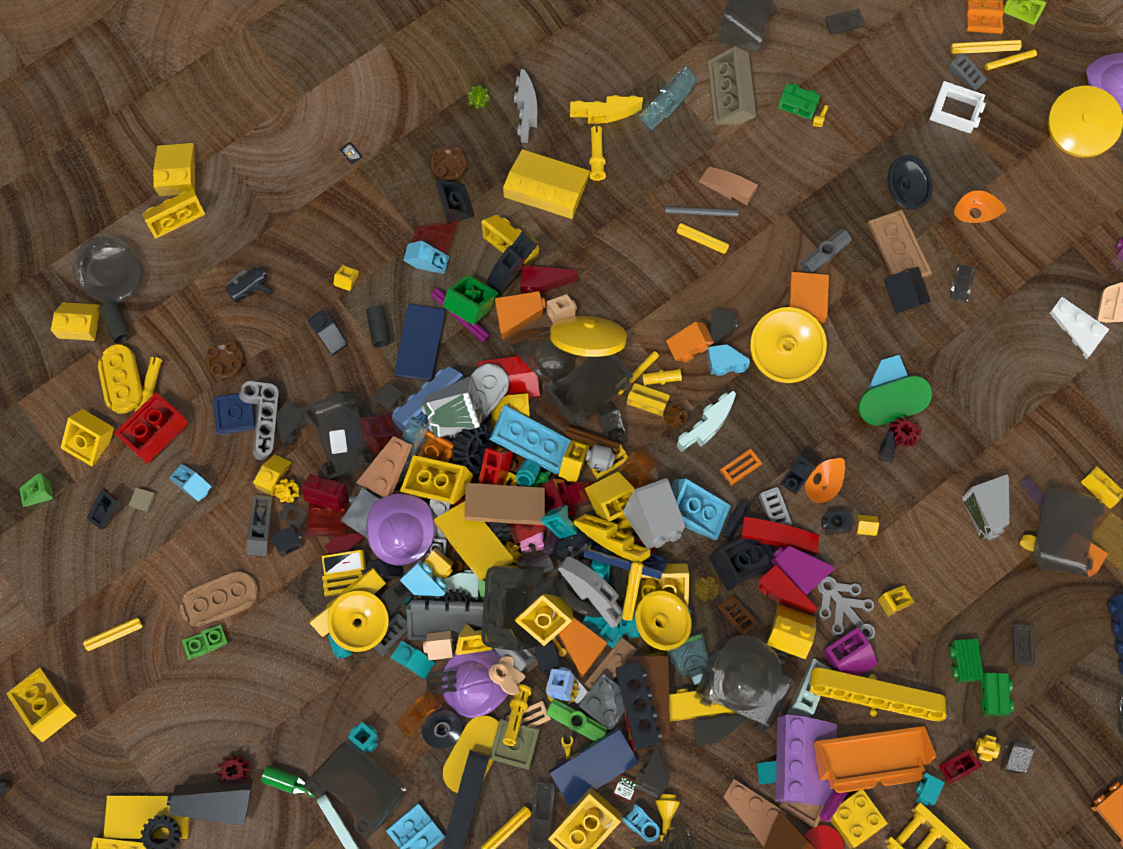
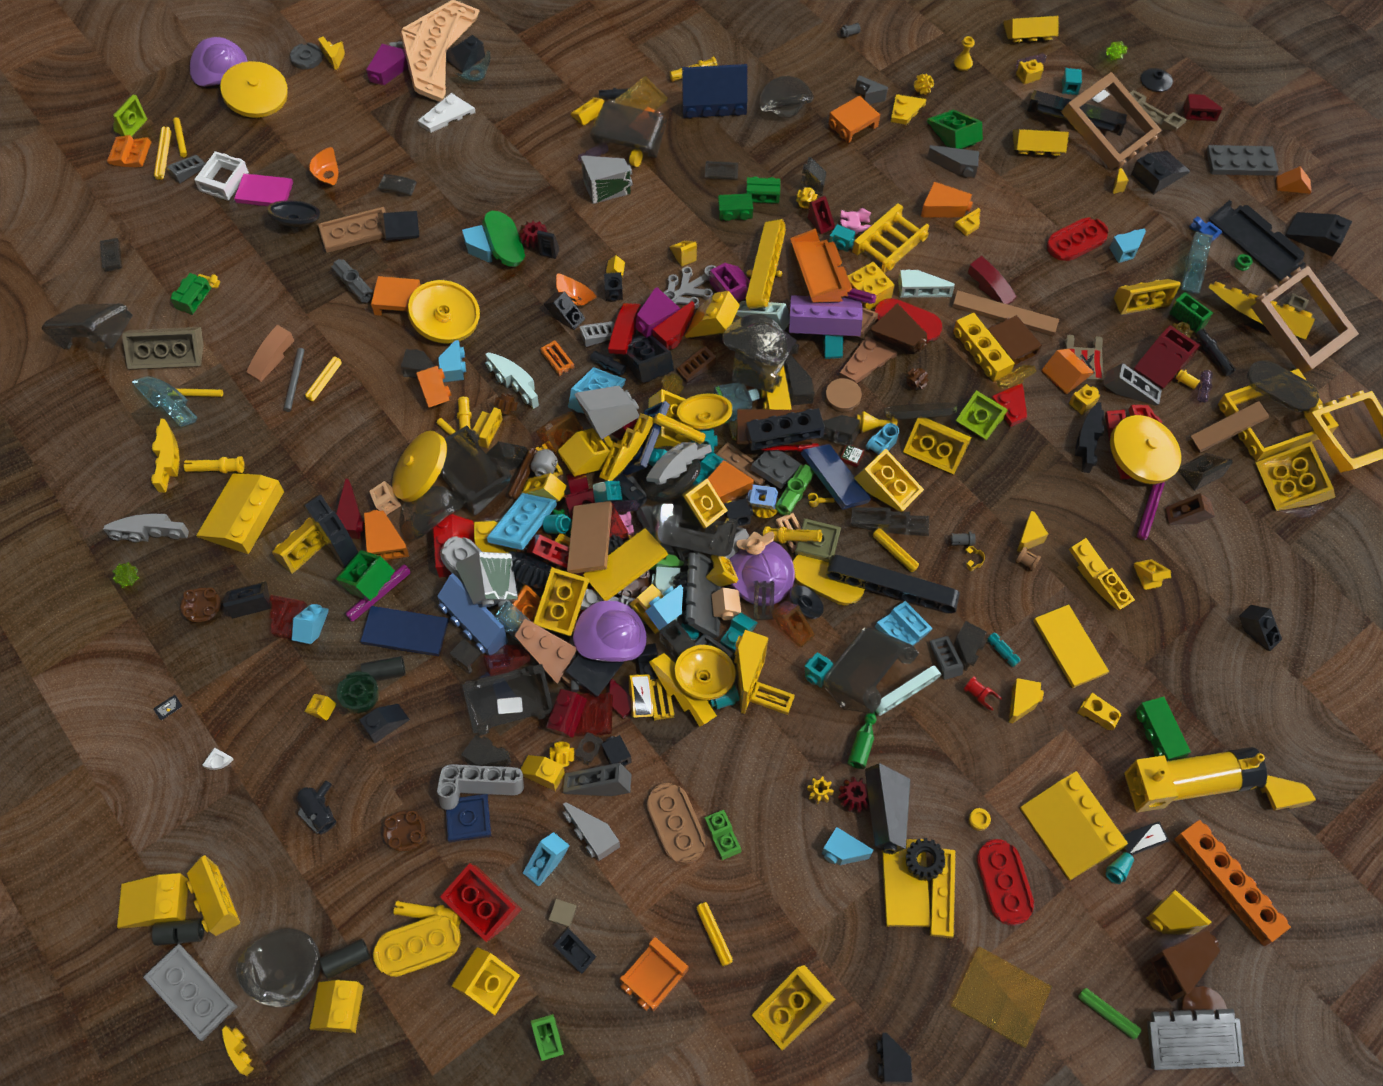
camera: 90 degrees left, 10 degrees down
(54, 245) = (234, 1046): none -> yellow slope
(79, 579) = (653, 975): none -> orange panel
(100, 208) = (190, 992): none -> light grey tile
(146, 192) = (178, 932): none -> pearl dark grey pin
(180, 758) = (845, 849): none -> medium azure slope
(210, 524) = (596, 833): none -> light grey slope
(243, 741) = (825, 790): none -> yellow gear
(299, 199) = (217, 760): none -> white tile
(347, 697) = (785, 710): none -> yellow tile
(350, 305) = (358, 692): none -> clear green cylinder
(360, 662) = (749, 662): none -> yellow slope
(682, 125) = (201, 392): none -> yellow bar
(705, 782) = (843, 394): none -> medium nougat tile
(944, 151) = (262, 189): none -> dark pink tile
(959, 804) = (852, 220): none -> bright pink animal

